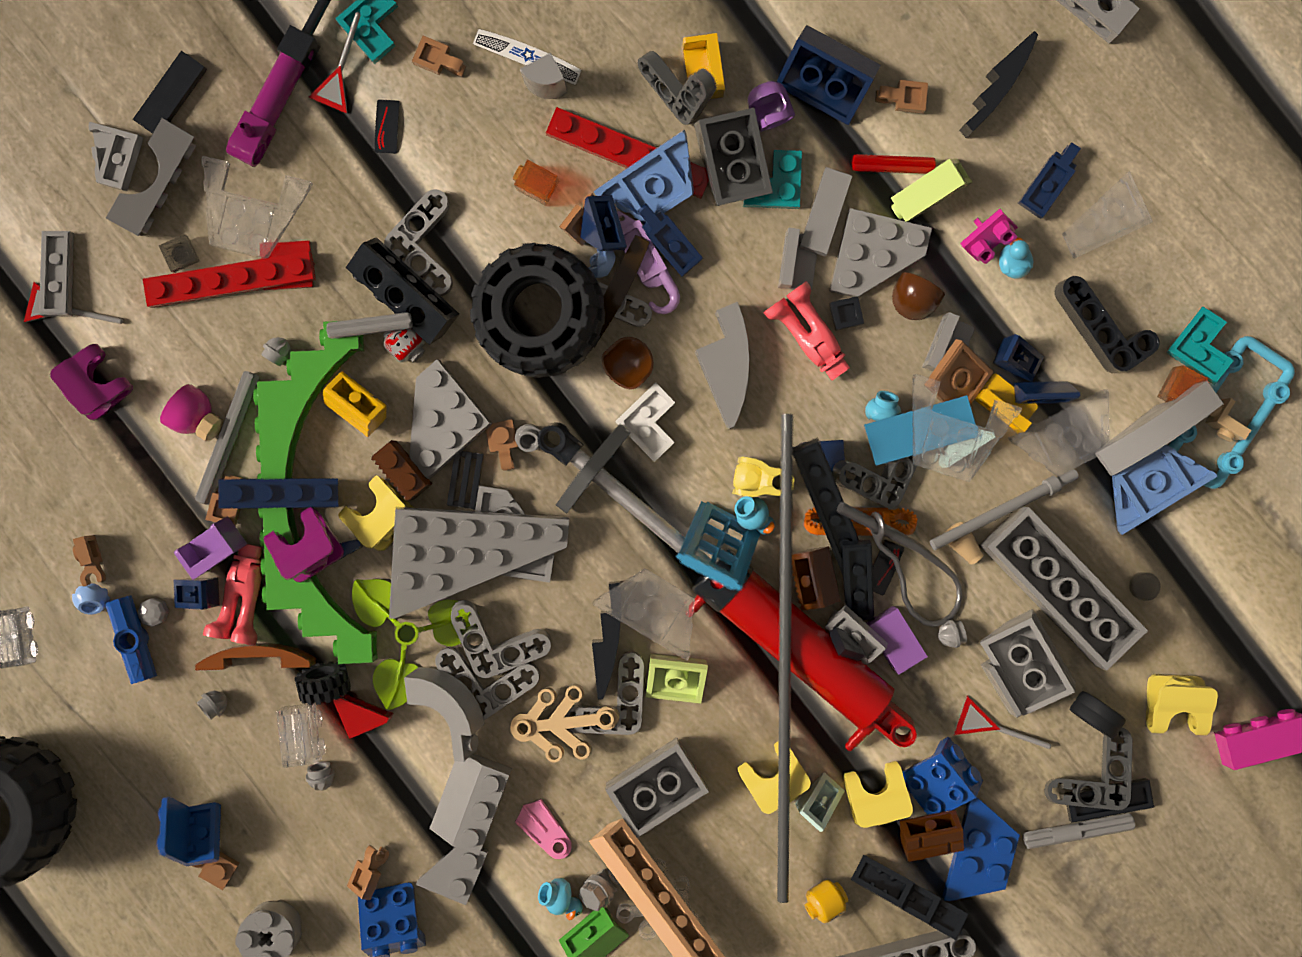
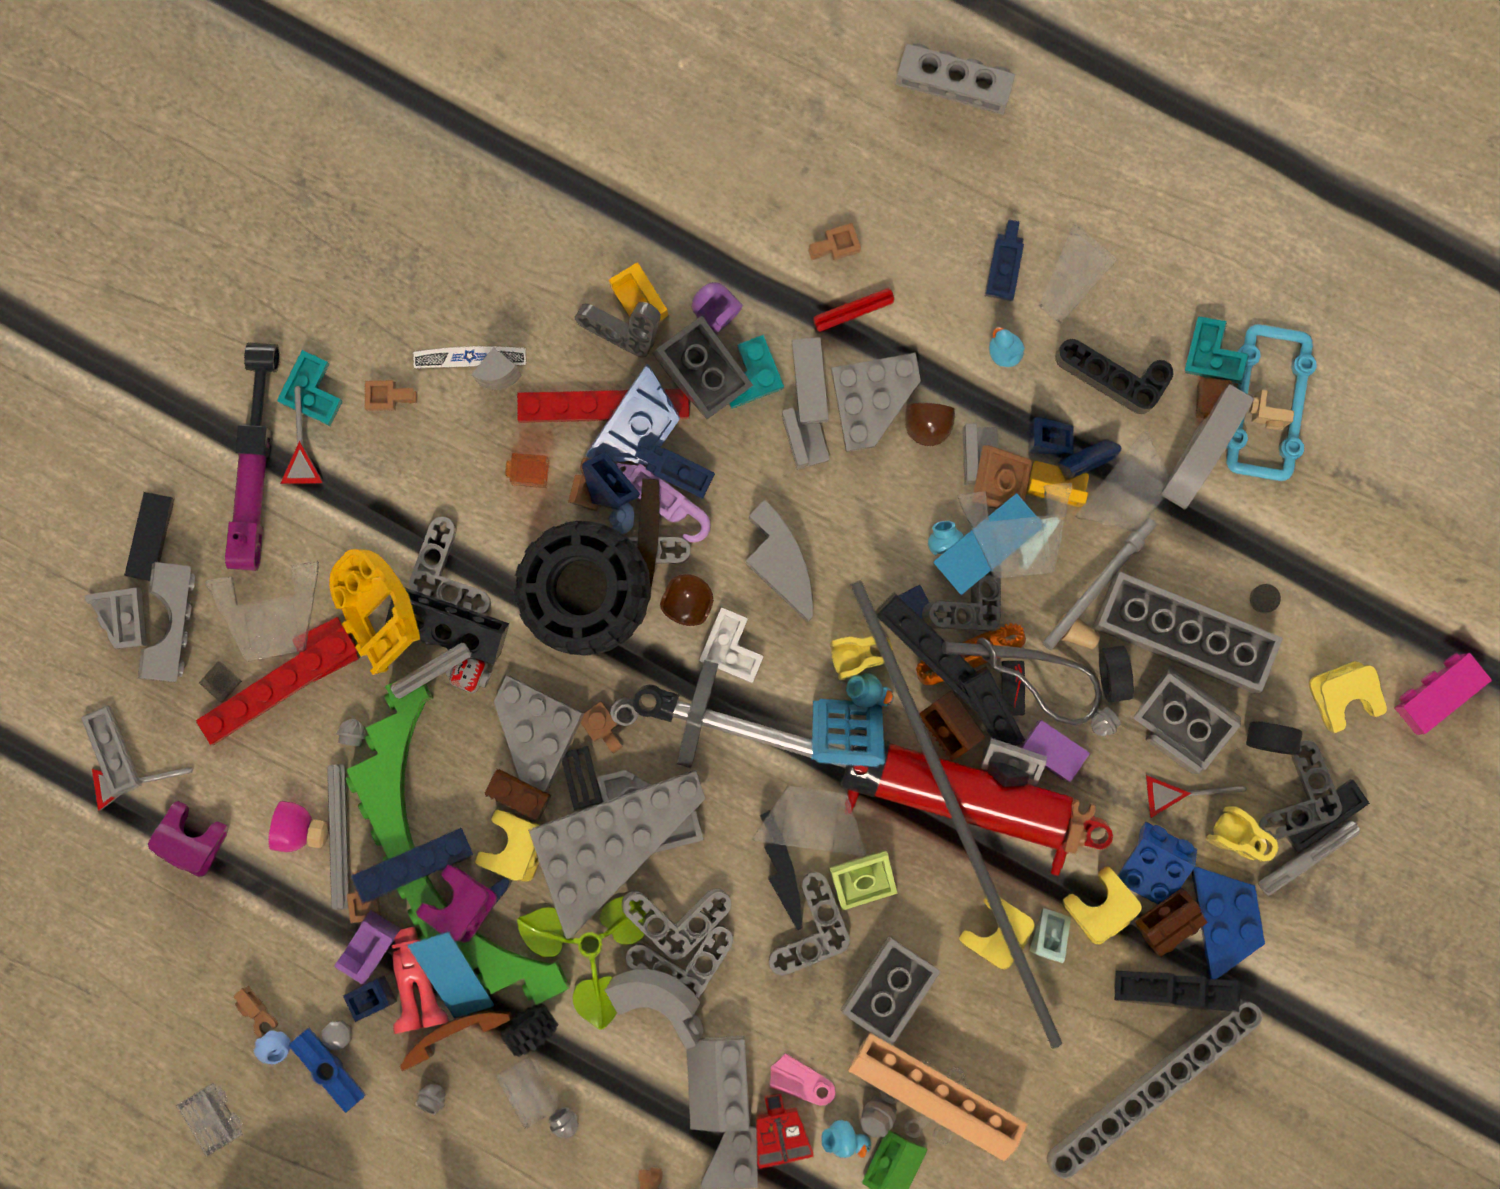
camera: 25 degrees left, 5 degrees down
(272, 605) = (450, 975): none -> dark azure sticker
(339, 221) = (358, 587): none -> yellow slope
(354, 404) = (447, 751): yellow brick -> none
(359, 715) = (577, 1047): red slope -> none
(386, 126) = (365, 478): black sticker -> none
(506, 869) = (780, 1134): none -> red torso
(559, 723) = (770, 971): tan plant -> none
(818, 344) = (858, 506): coral piece -> none
(826, 901) = (1100, 1030): yellow head -> none
(827, 74) = (756, 255): dark blue slope -> none
(846, 313) = (871, 466): black plate -> none
(884, 724) = (1075, 834): none -> medium nougat plate
(930, 190) = (898, 319): yellowish green slope -> none
(983, 596) = (1116, 674): none -> black tyre
(988, 235) = (970, 338): dark pink hips -> none
(1002, 79) = (919, 188): black slope -> none
(1031, 788) = (1239, 833): none -> light yellow piece
(1155, 485) = (1229, 500): medium blue wing -> none

